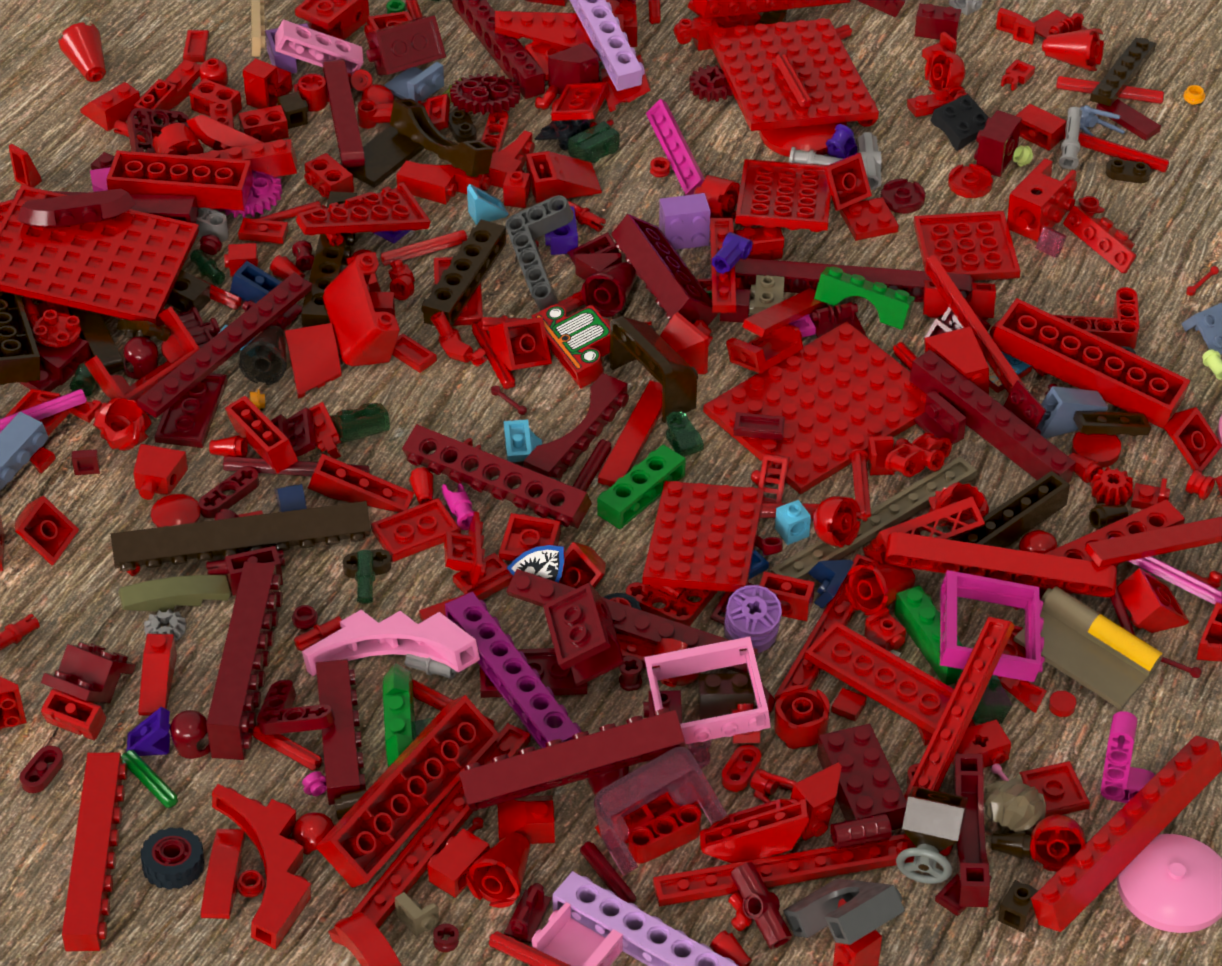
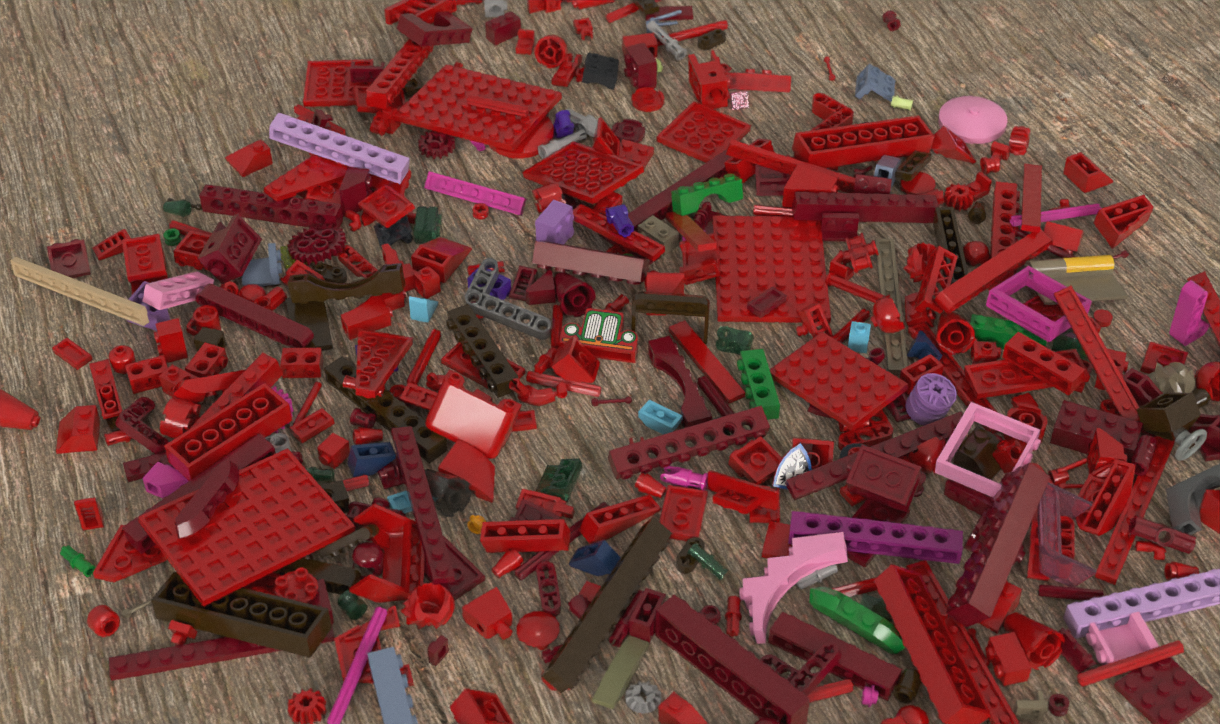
camera: 50 degrees left, 0 degrees up
(901, 677) = (1043, 363): none -> red brick

